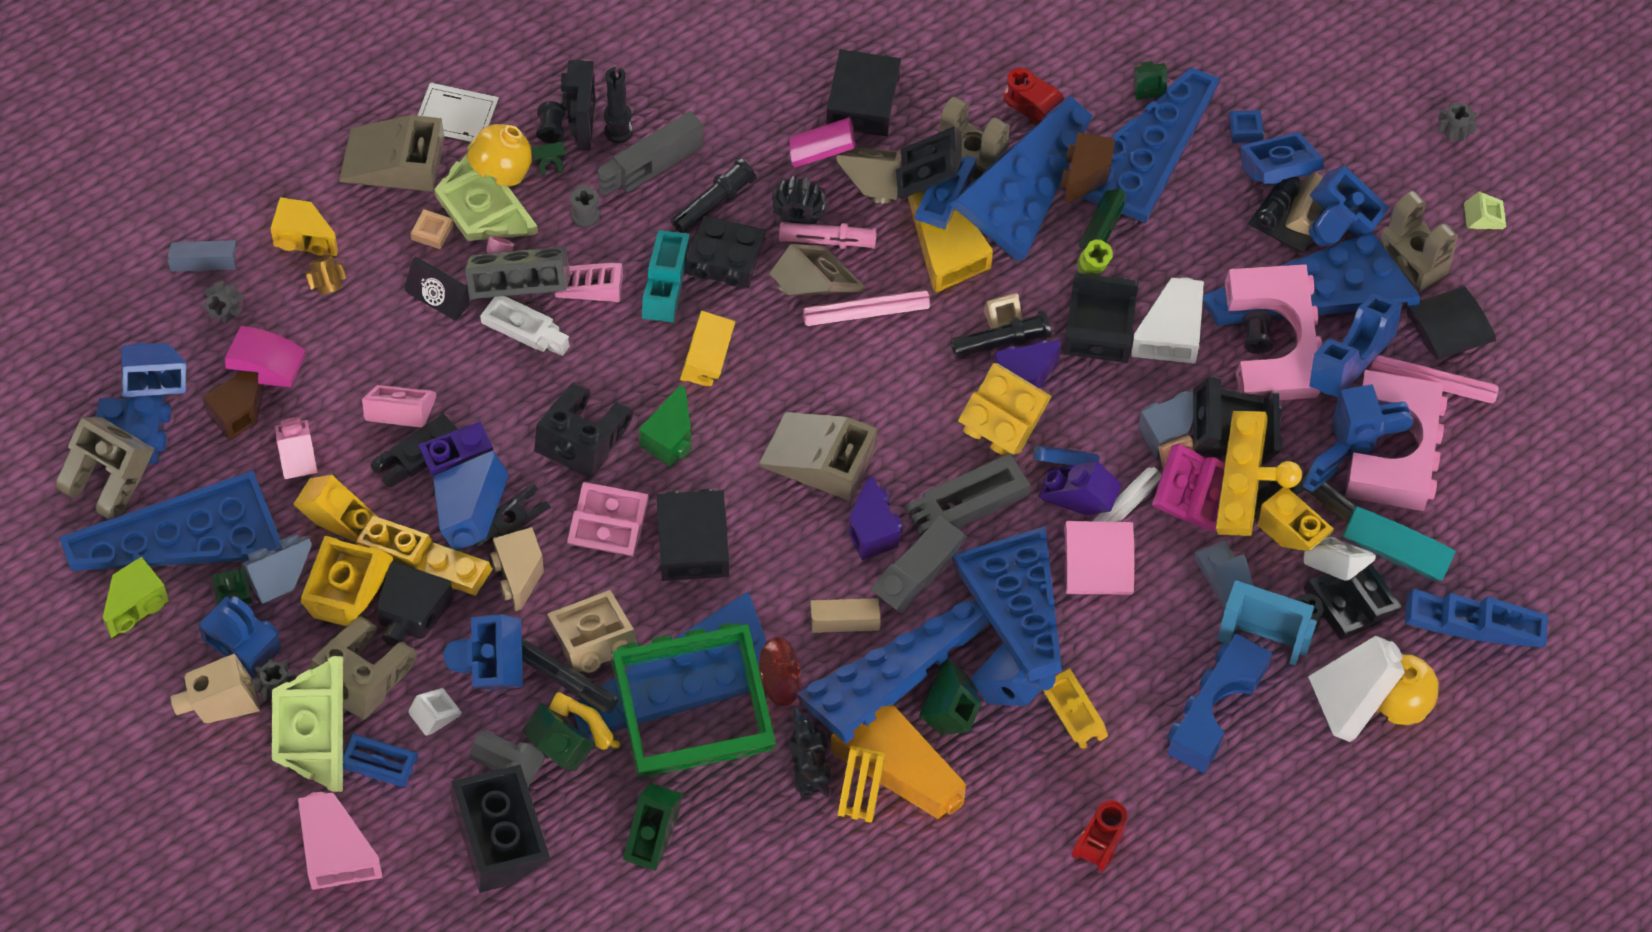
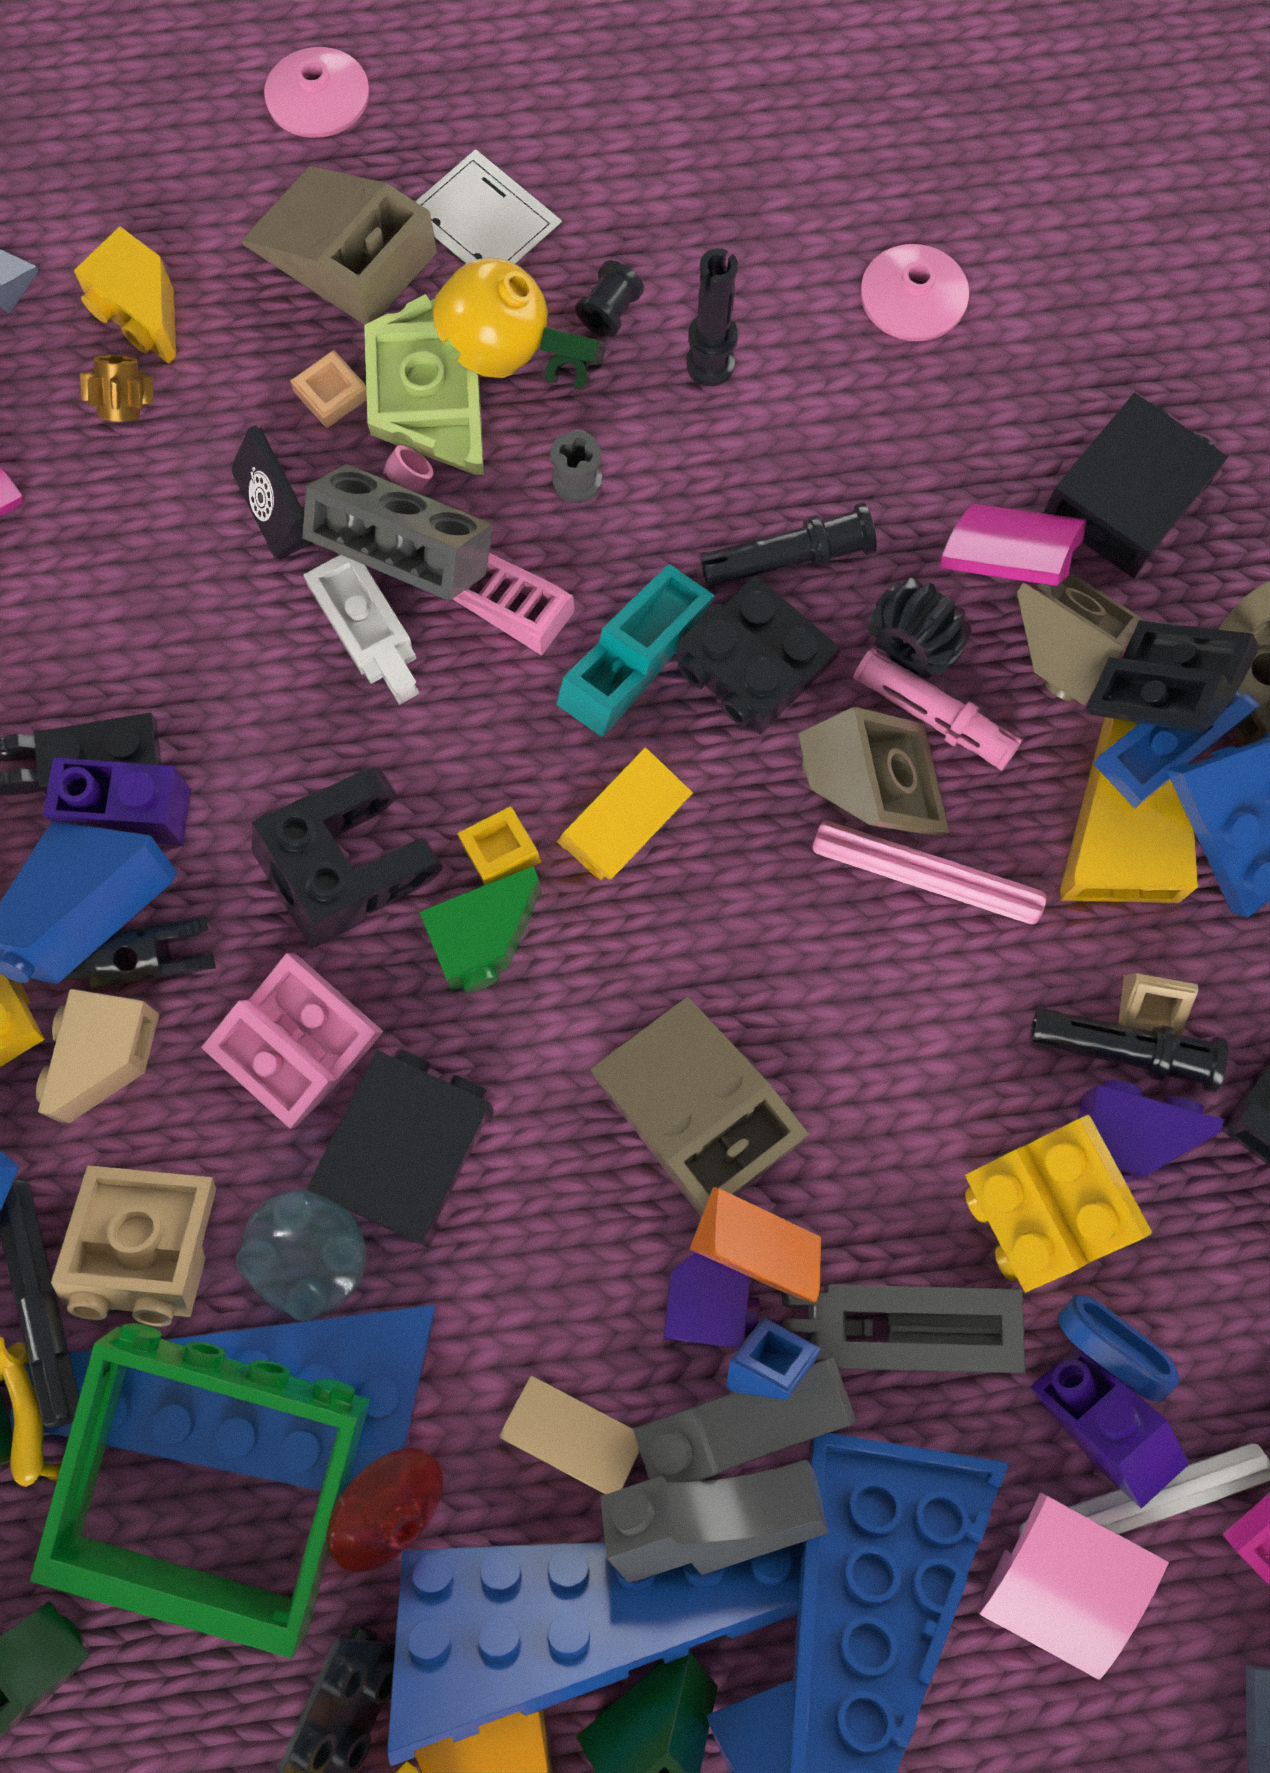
camera: 30 degrees right, 15 degrees up
(329, 99) = (316, 92): none -> bright pink dish
(398, 405) = (92, 662): bright pink slope -> none
(580, 99) = (668, 285): black plate -> none
(652, 155) = (731, 430): dark grey hinge -> none
(656, 387) = (499, 846): none -> yellow tile
(673, 600) = (302, 1253): none -> clear light blue dish
(705, 60) = (913, 309): none -> bright pink dish
(882, 485) = (759, 1245): none -> orange slope
(914, 529) = (770, 1362): none -> blue slope
(929, 602) = (710, 1521): none -> dark grey slope

